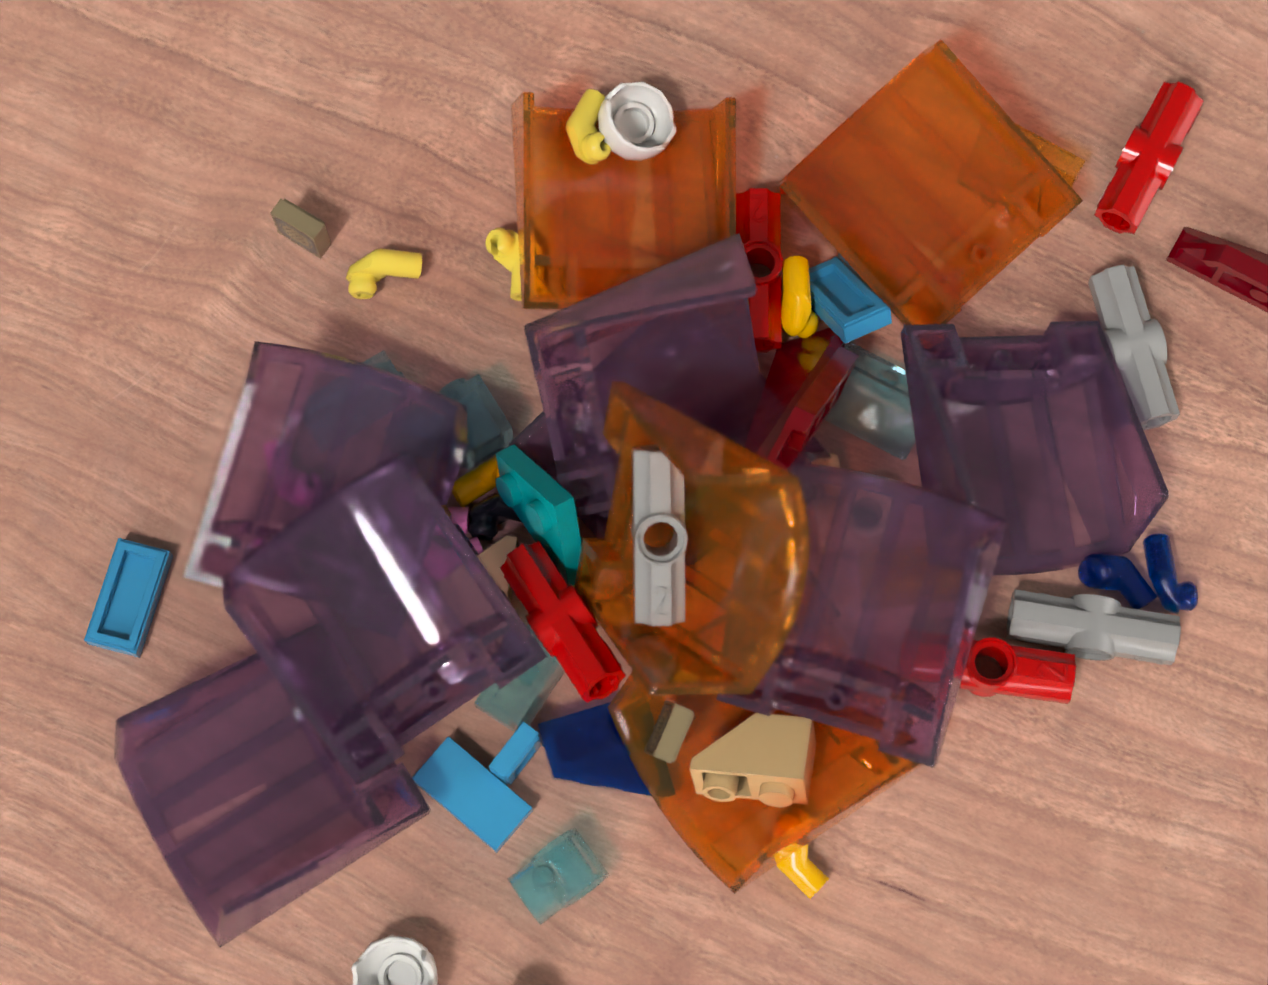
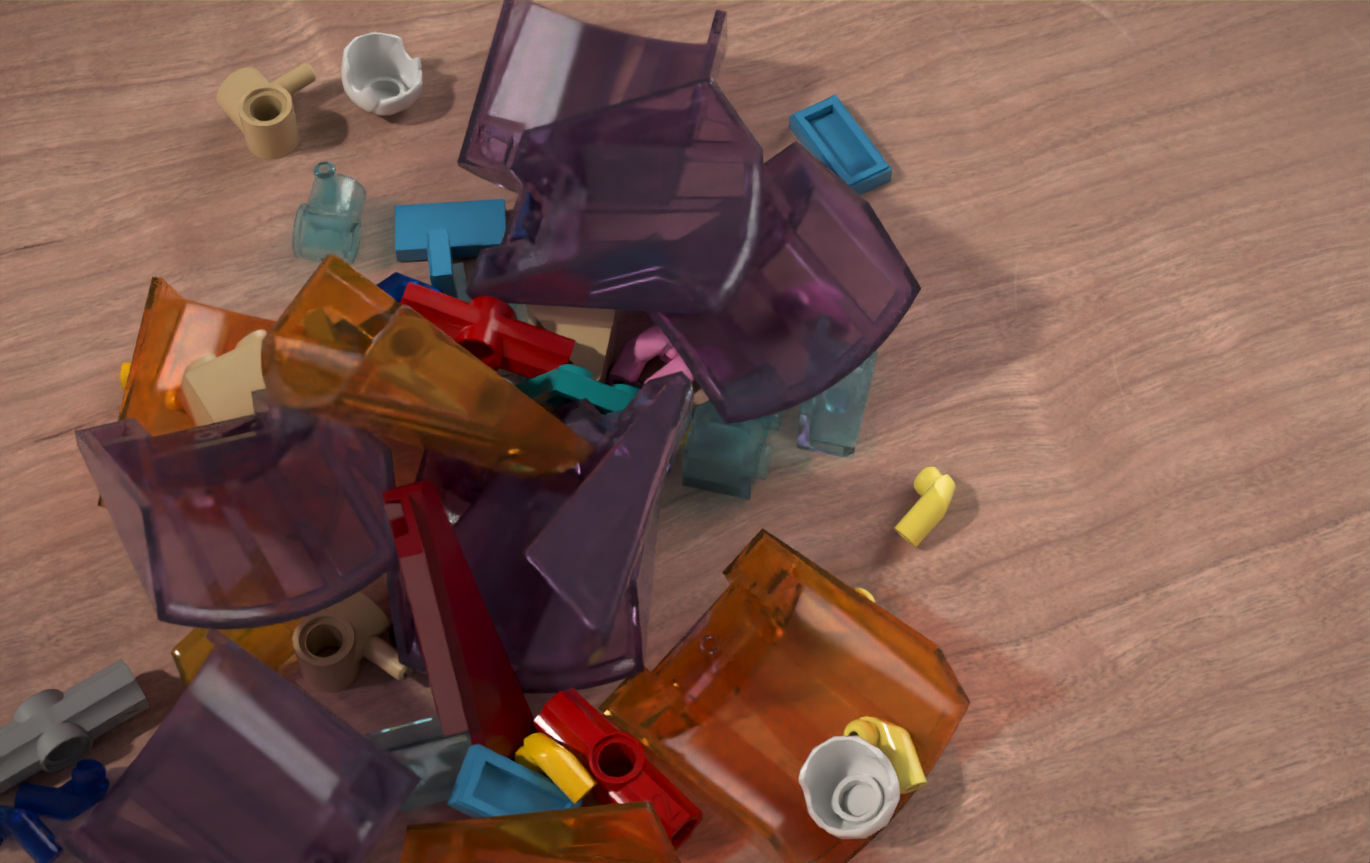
camera: 135 degrees right, 15 degrees down
(301, 227) = (1024, 473): dark tan tile -> none
(1025, 672) = (87, 641): red piece -> none

